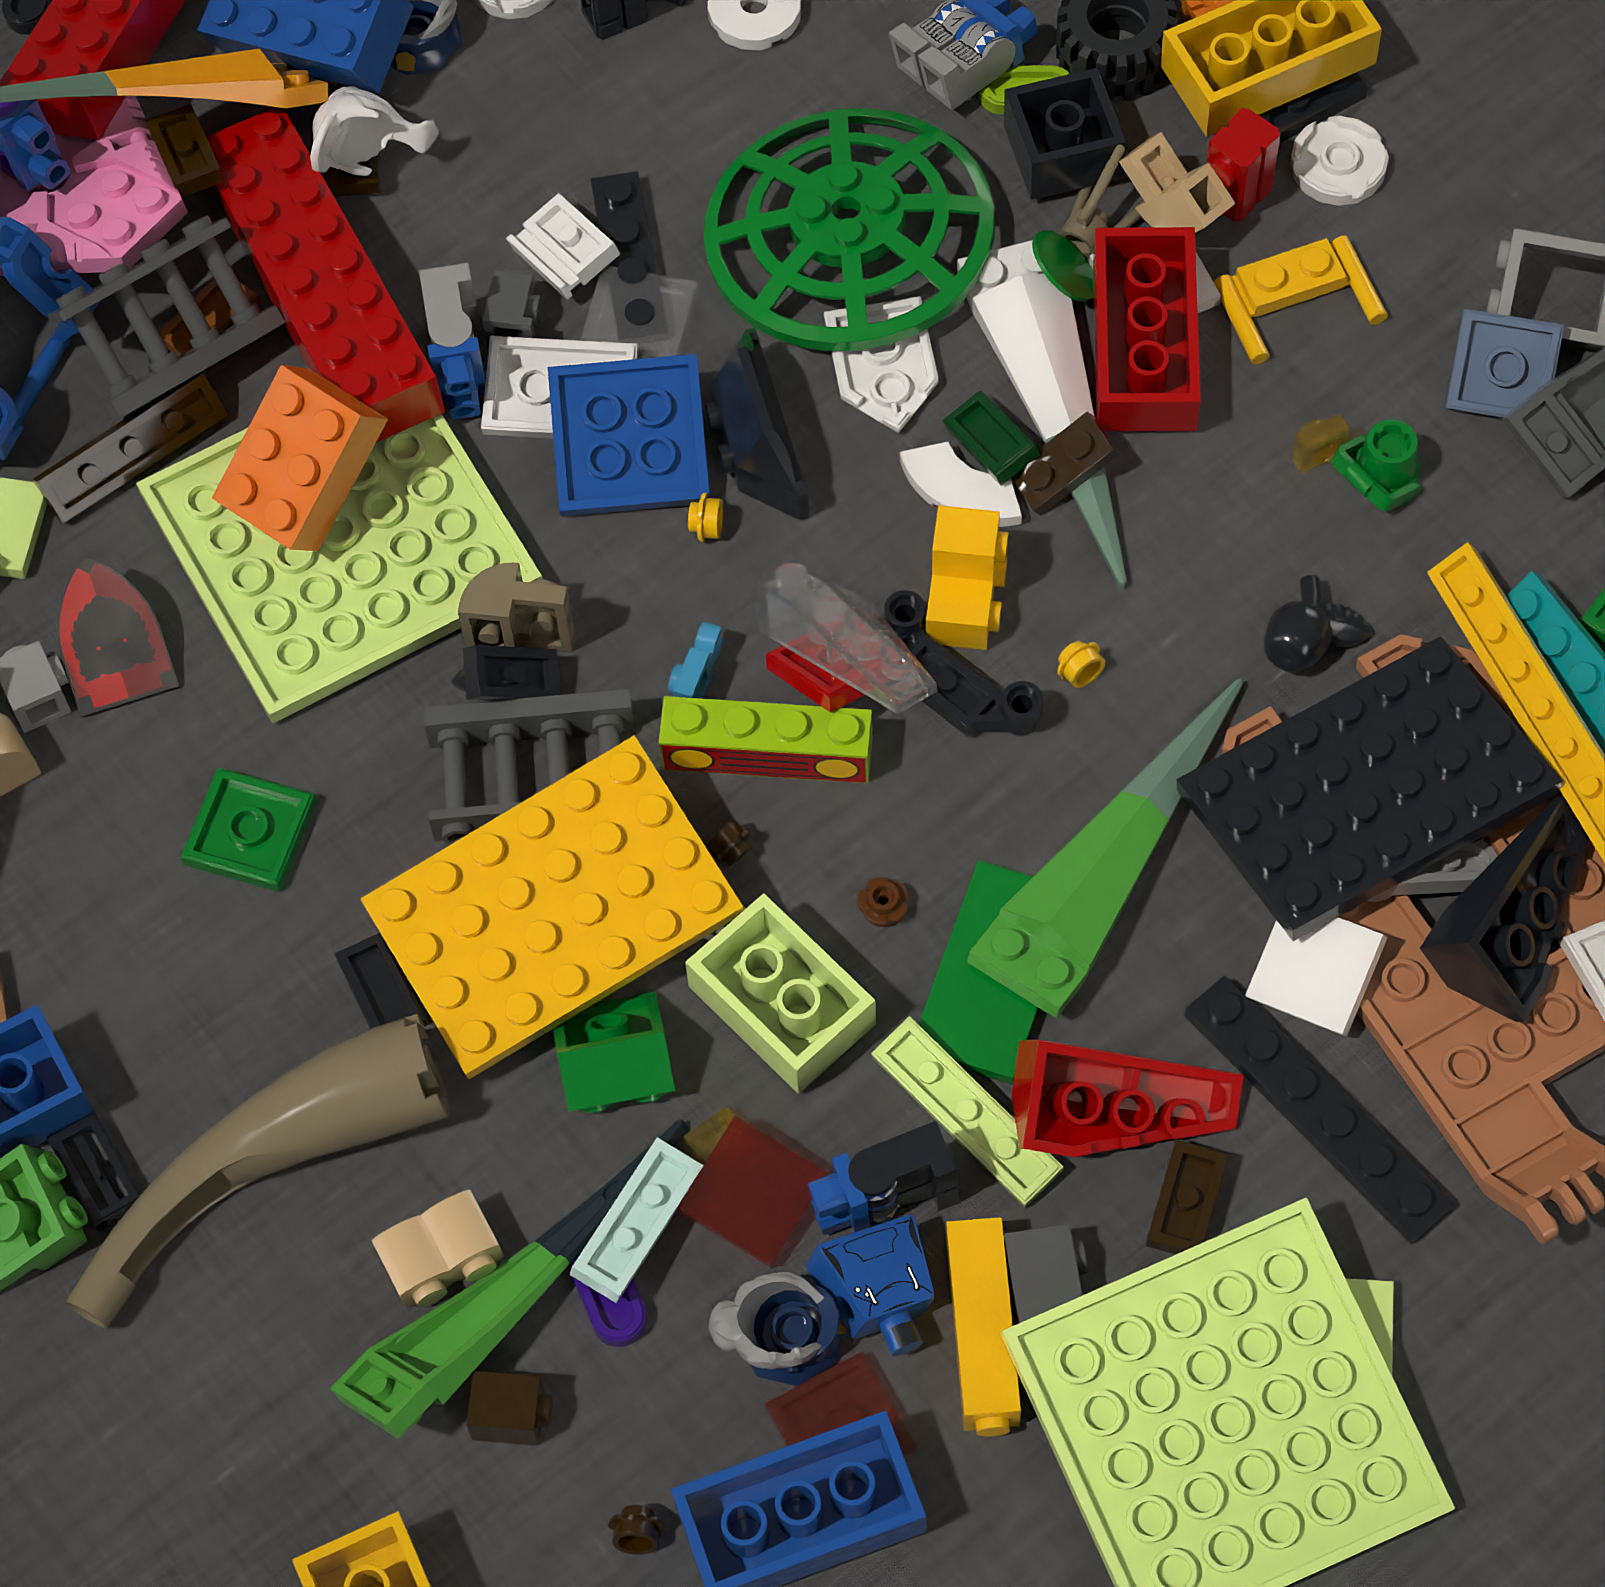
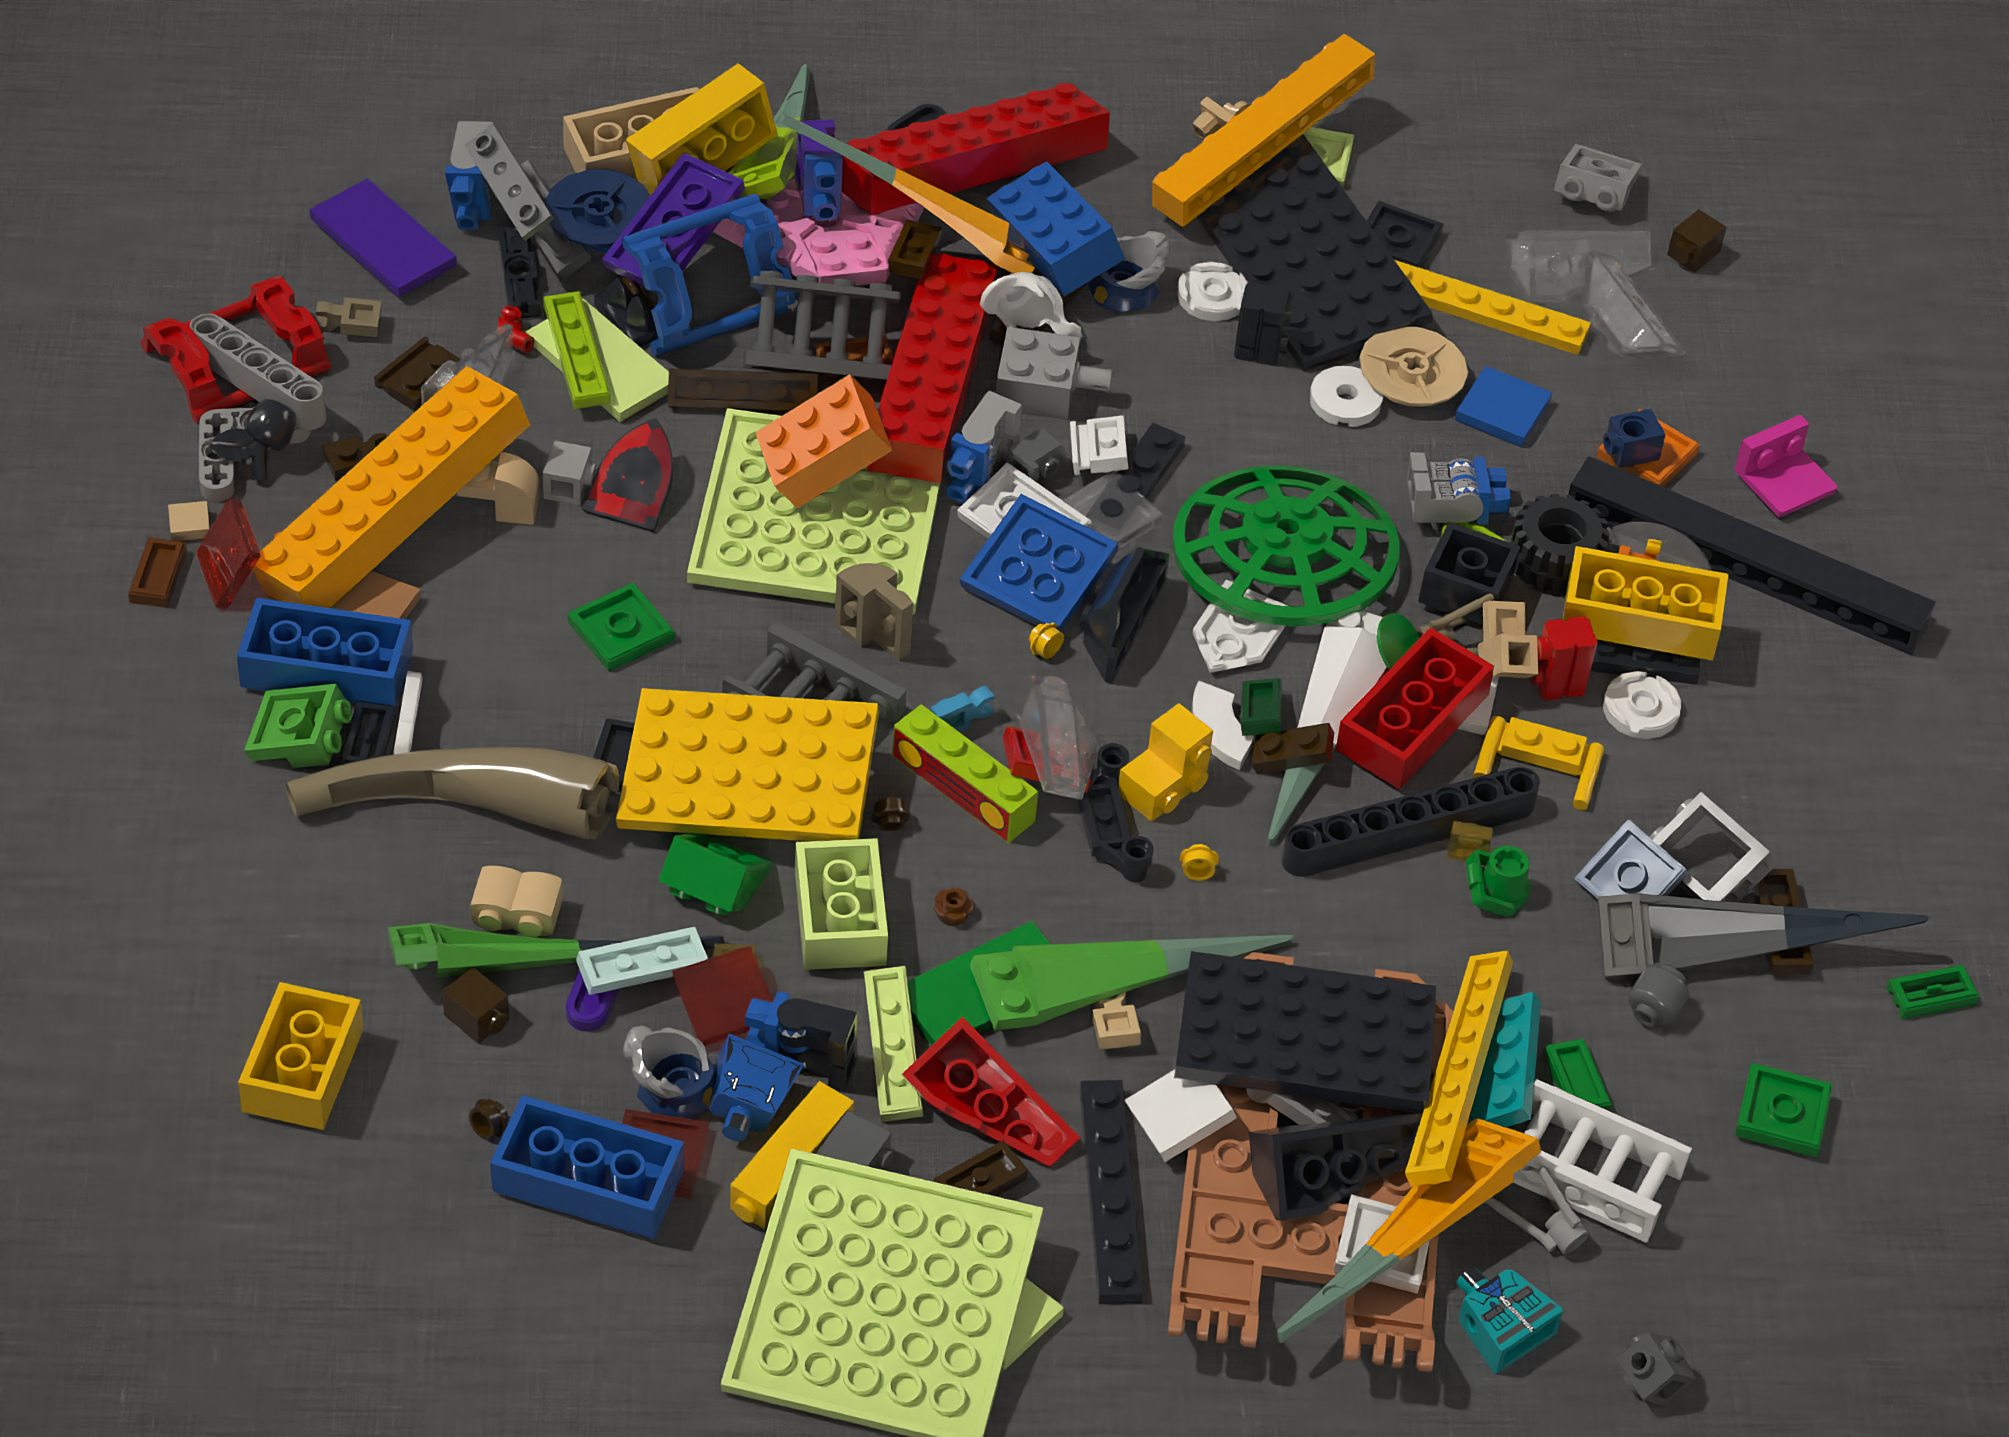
camera: 30 degrees right, 15 degrees down
(122, 1115) = (408, 712): none -> white tile
(432, 201) = (1044, 371): none -> light grey brick
(507, 673) = (843, 634): black tile -> none
(1163, 915) = (1116, 1023): none -> tan plate
(1242, 481) = (1408, 821): none -> black beam
(1305, 629) = (1354, 932): black piece -> none

